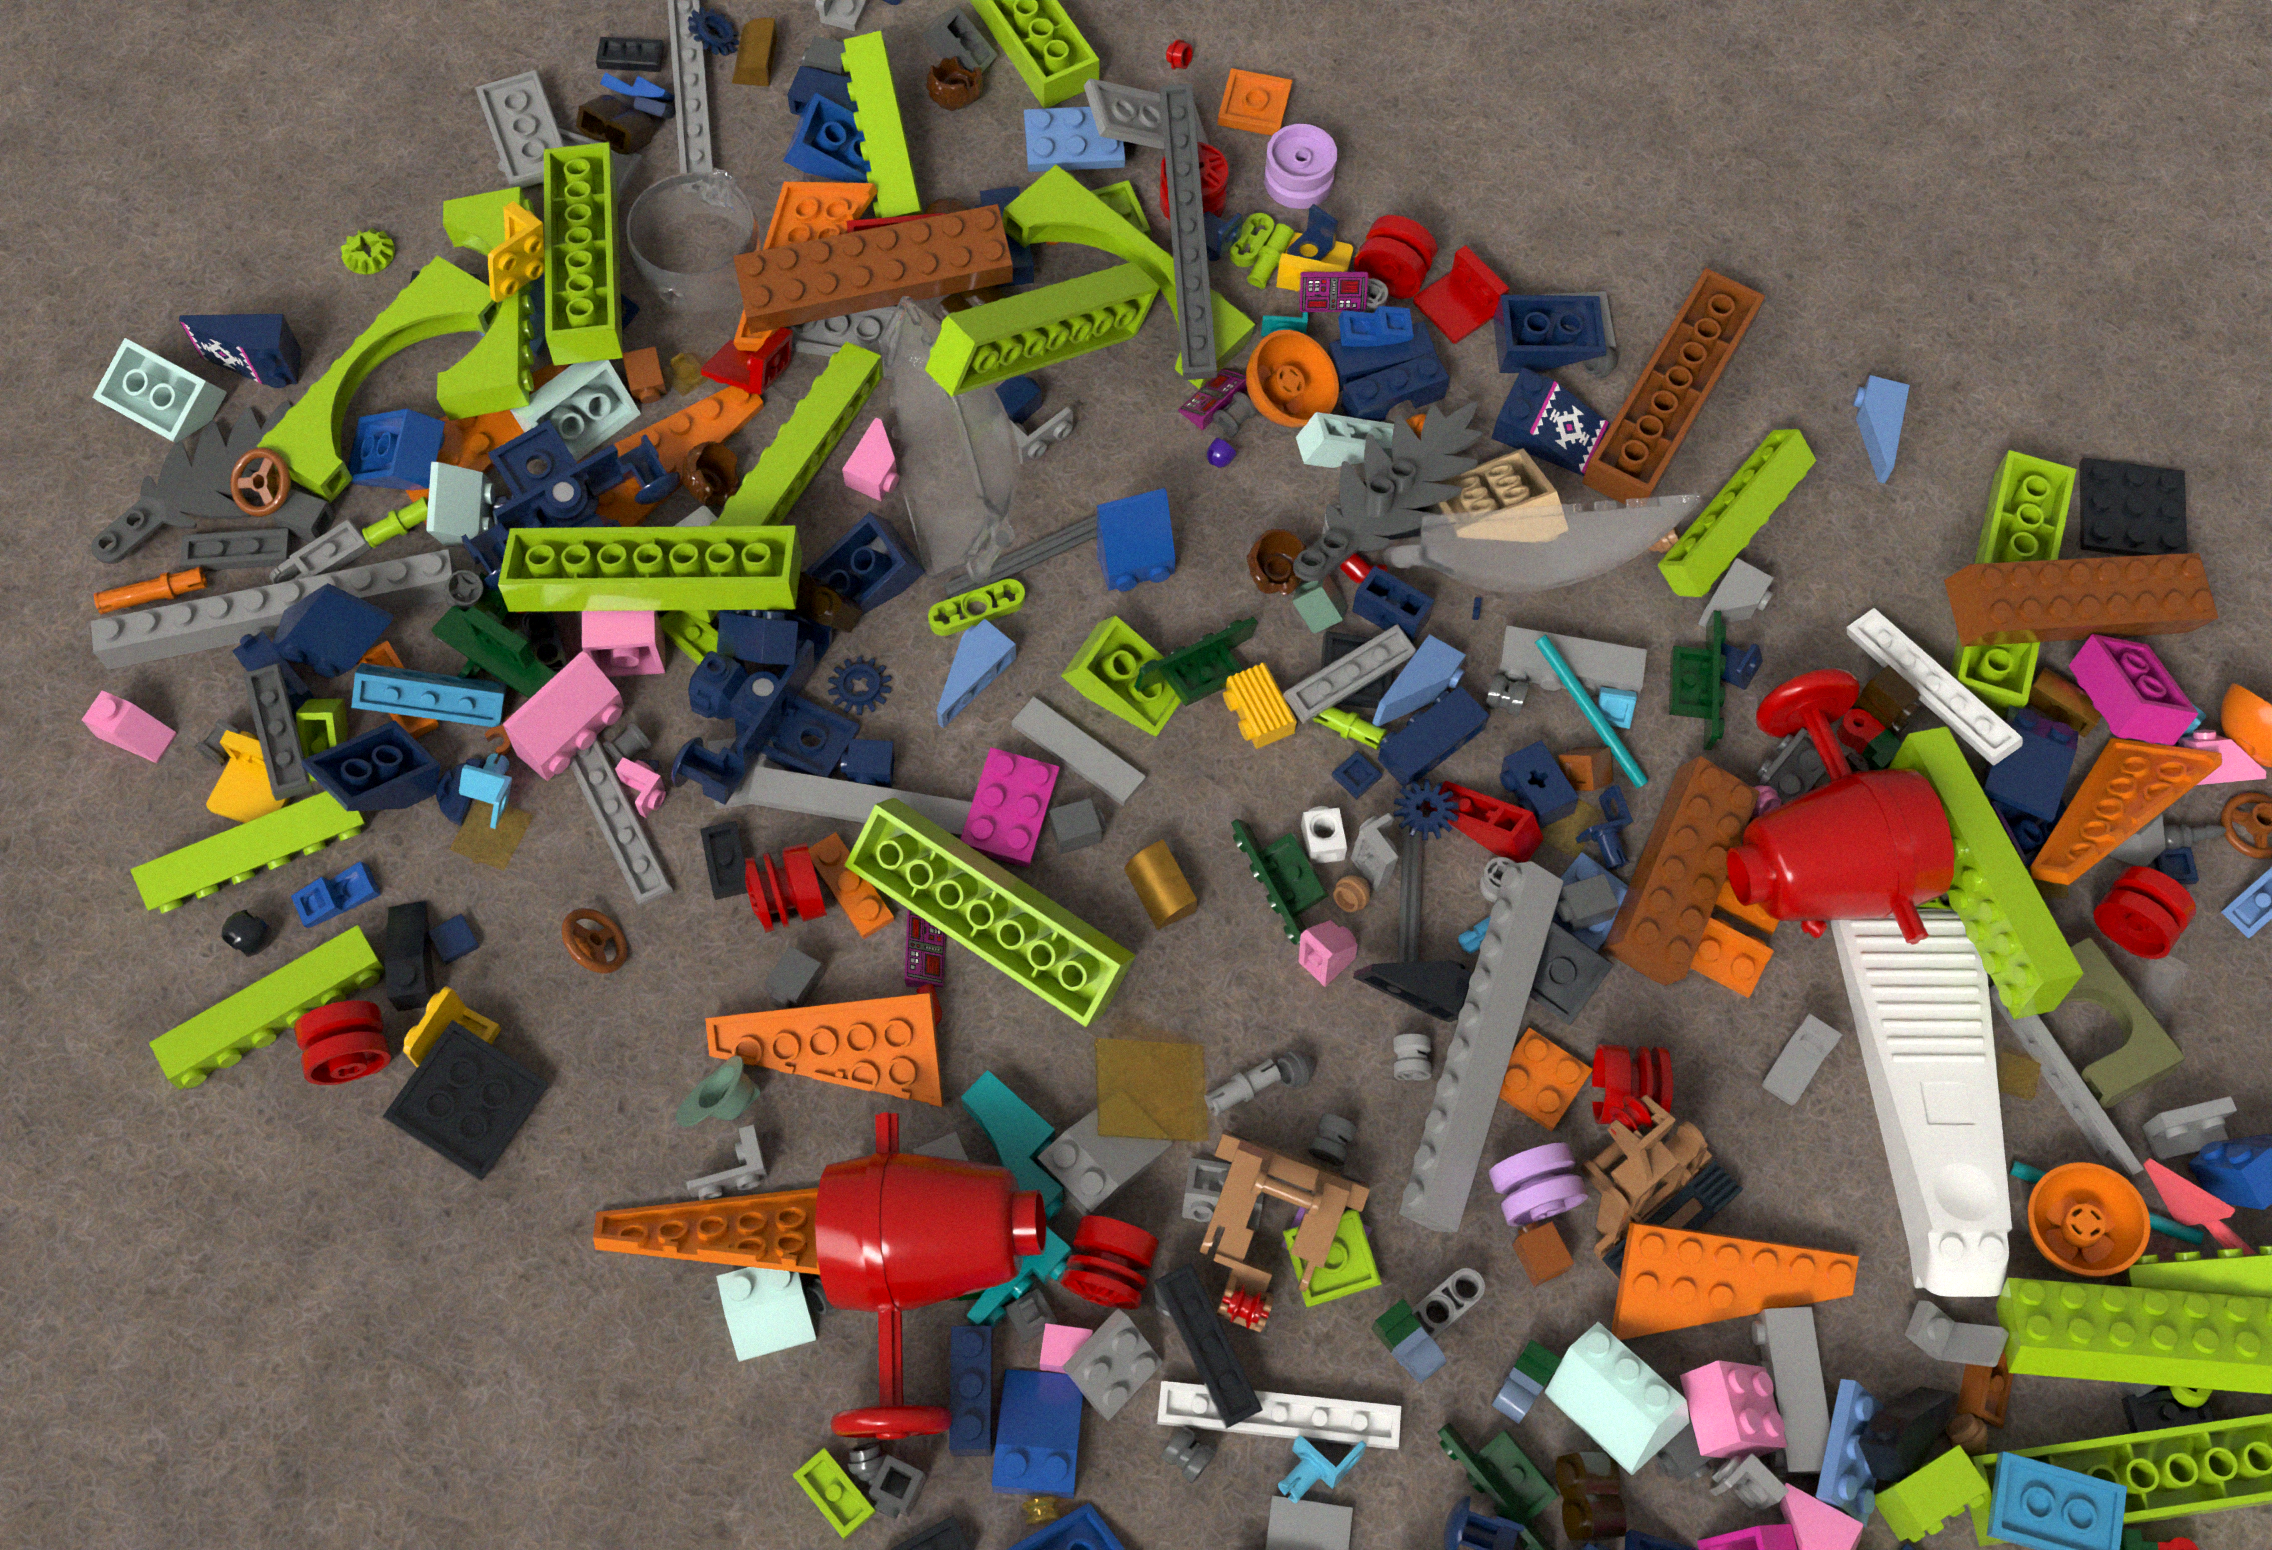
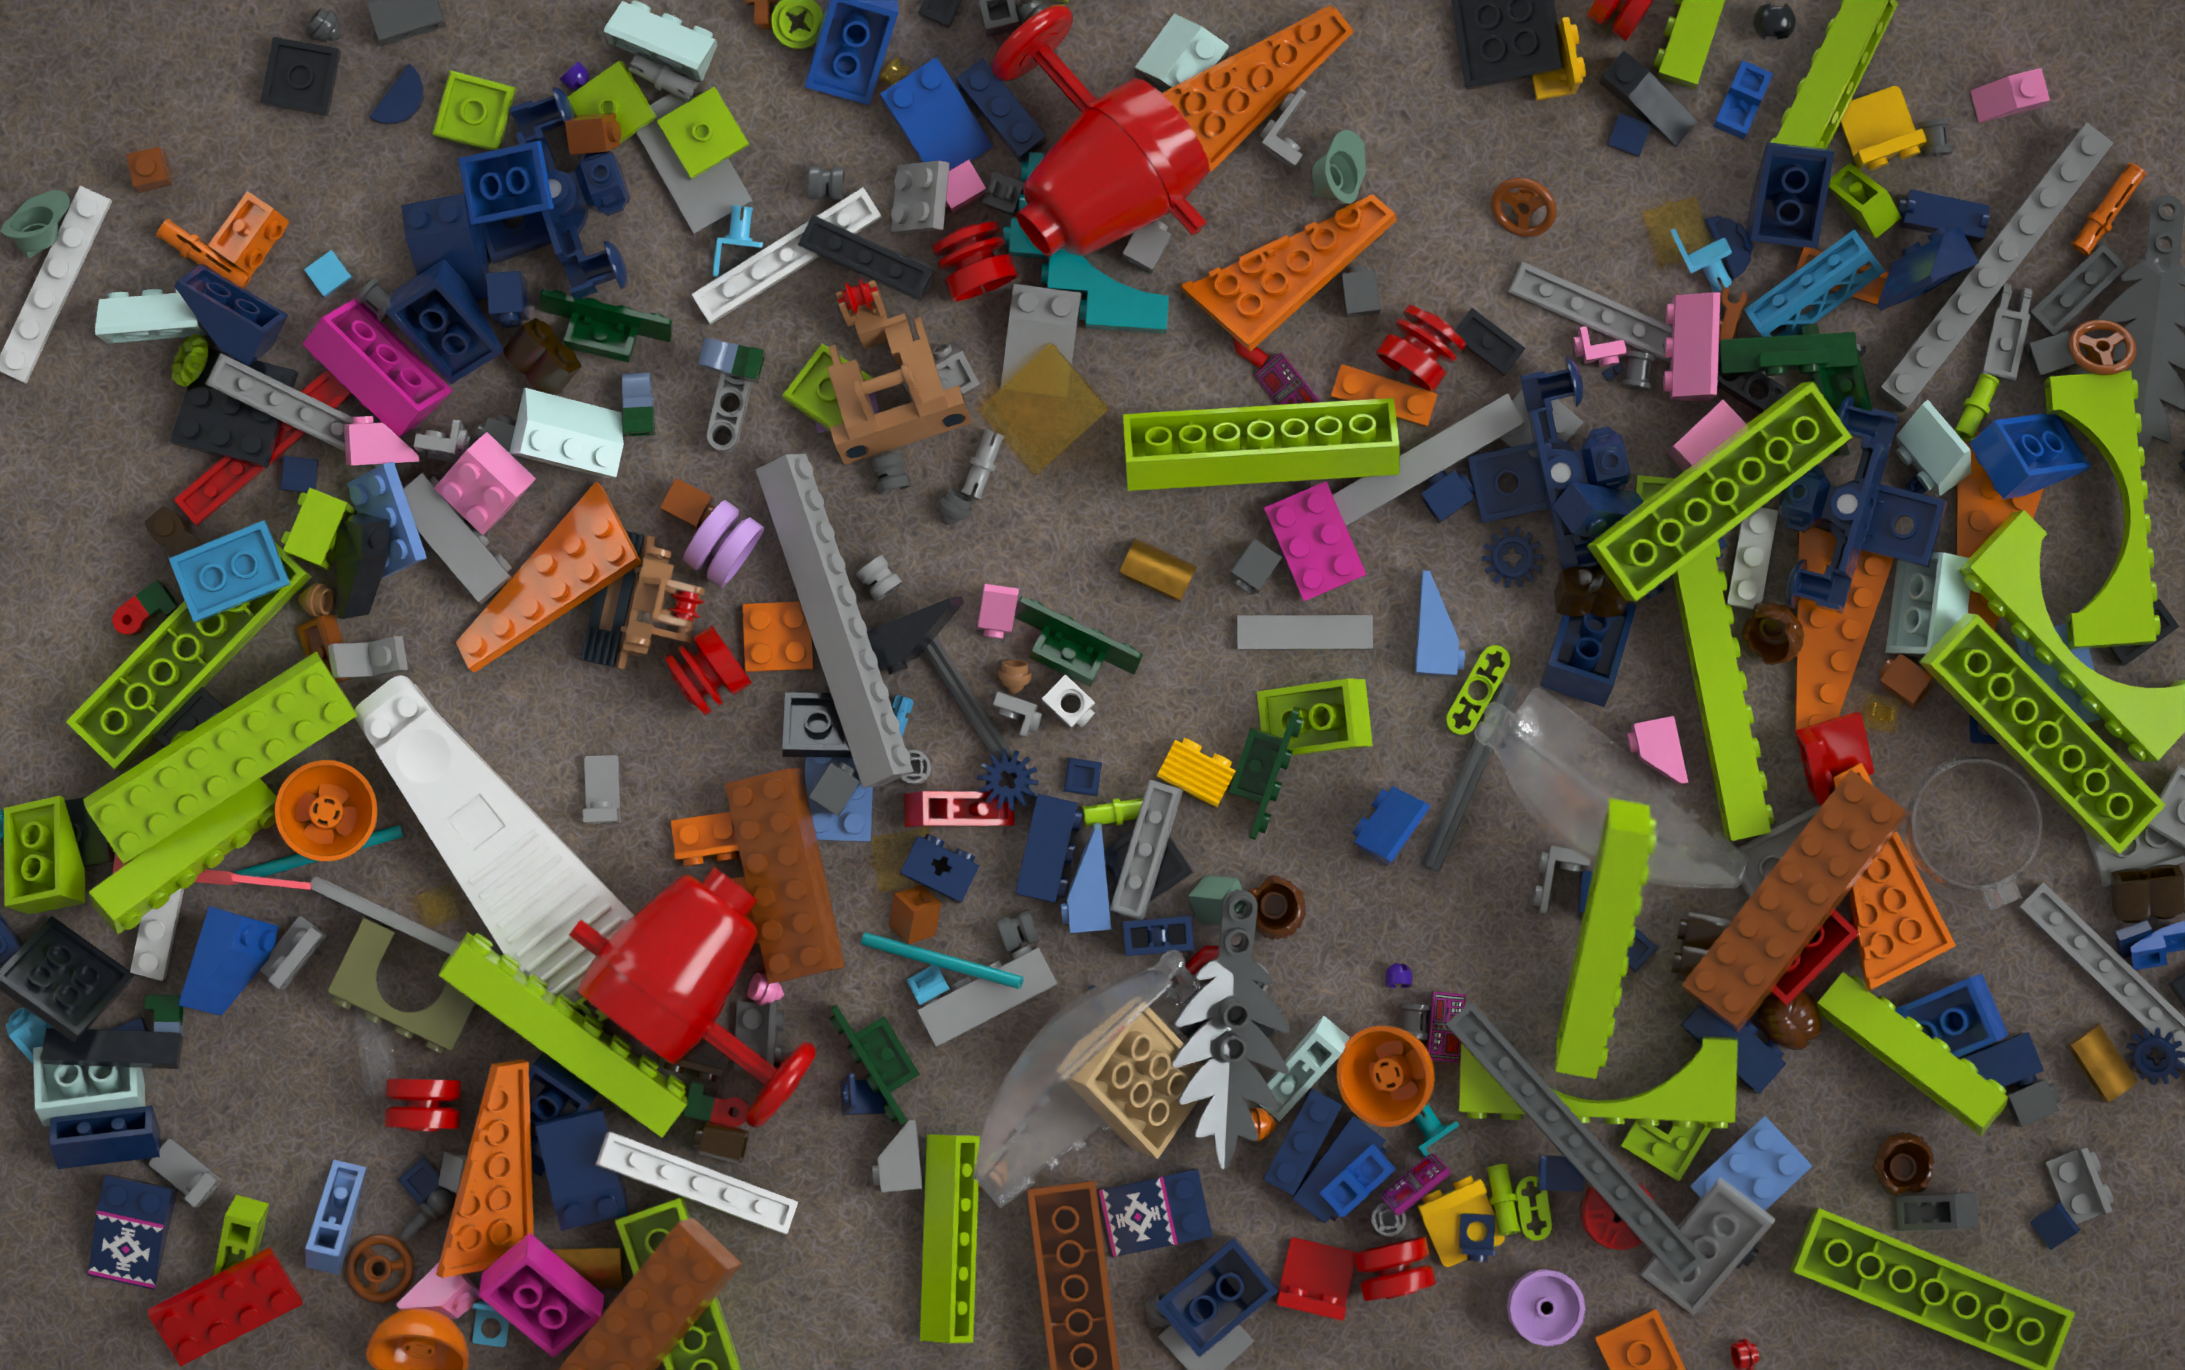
camera: 145 degrees right, 20 degrees up
(277, 731) = (1887, 167): dark grey tile -> none
(466, 585) = (1854, 376): dark grey wheel -> none
(520, 256) = (2083, 693): yellow bracket -> none
(1607, 833) = (860, 866): dark blue bracket -> none

